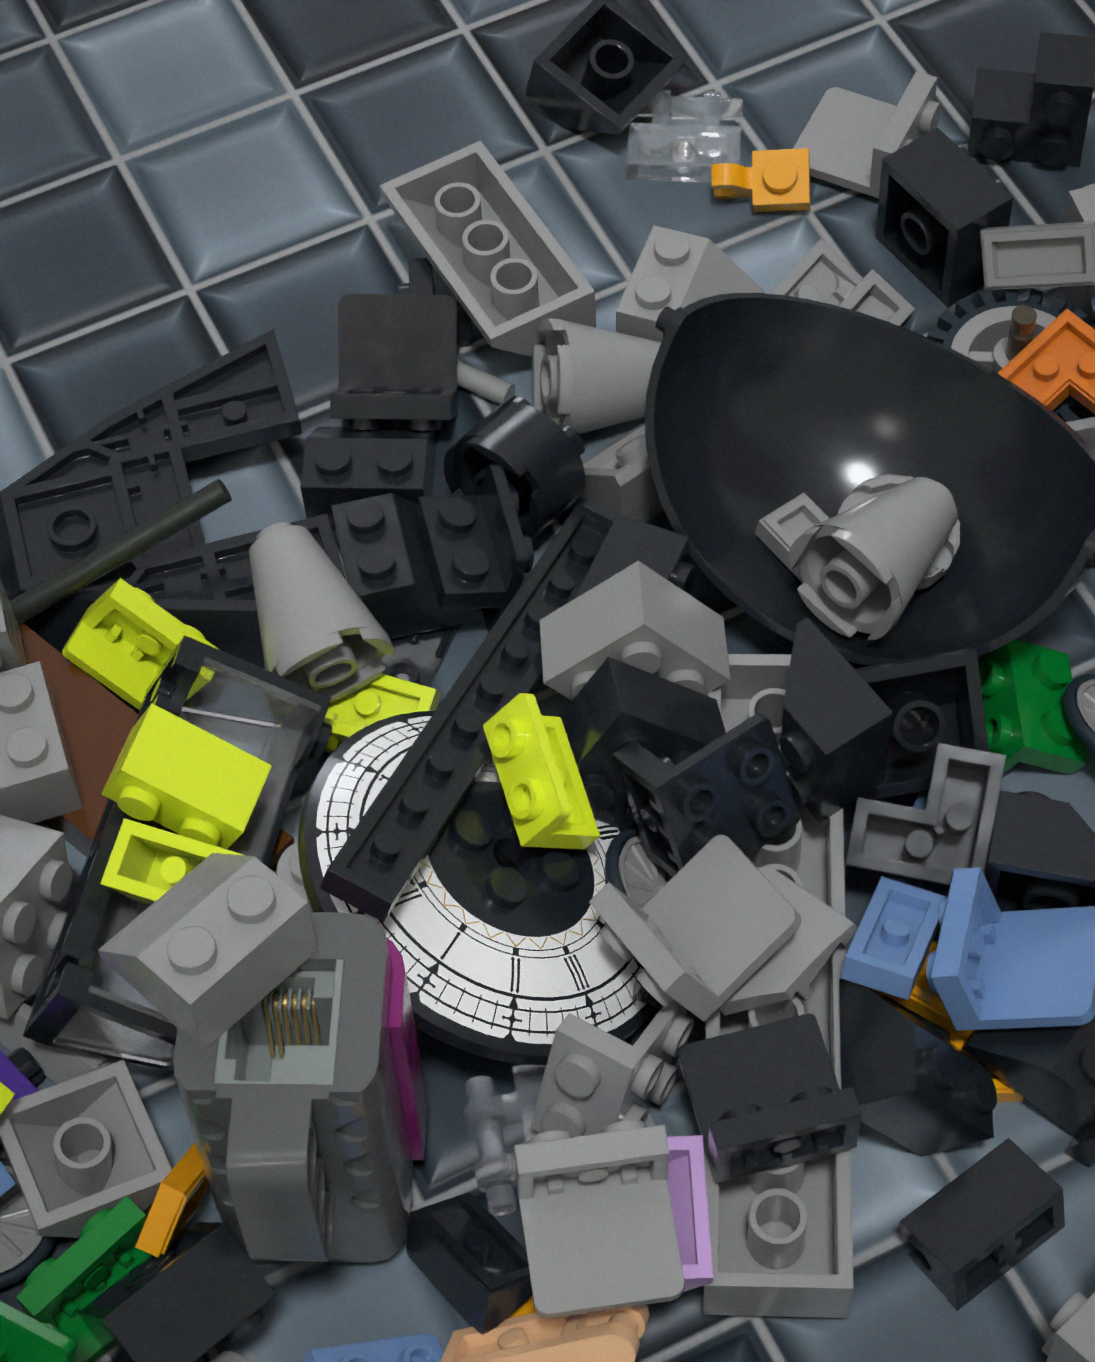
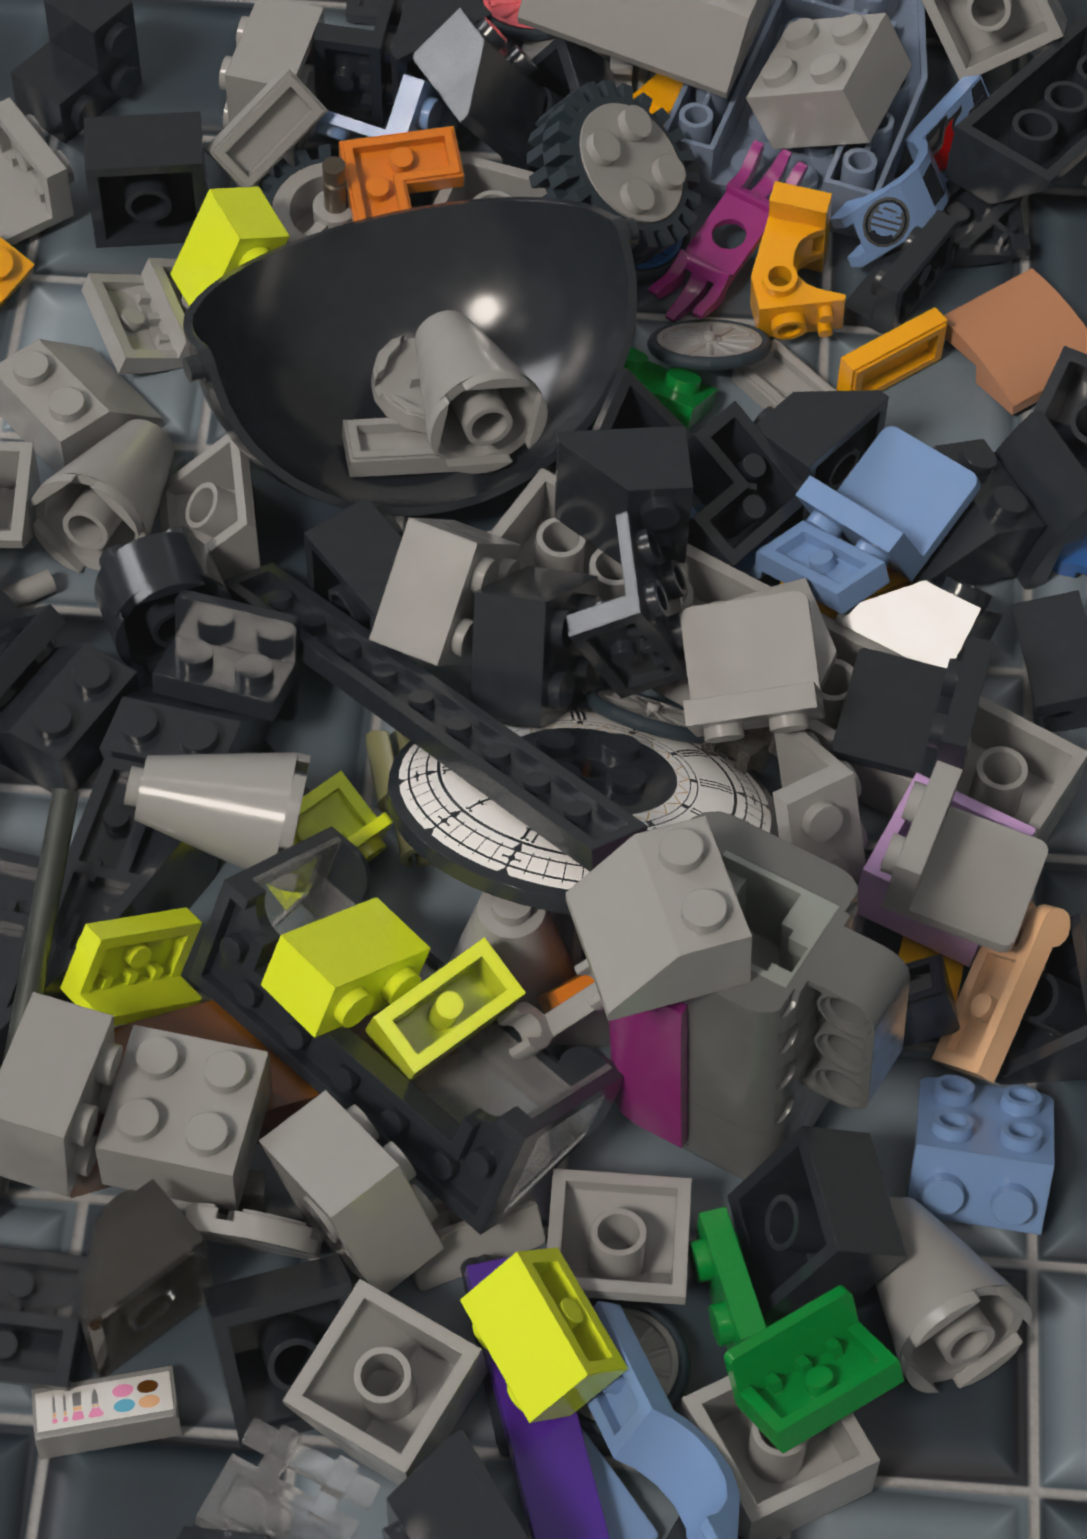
camera: 65 degrees left, 0 degrees up
(174, 1204) = (720, 1179): light orange tile -> none
(540, 777) = (548, 696): neon yellow bracket -> none
(917, 294) = (227, 232): none -> neon yellow brick

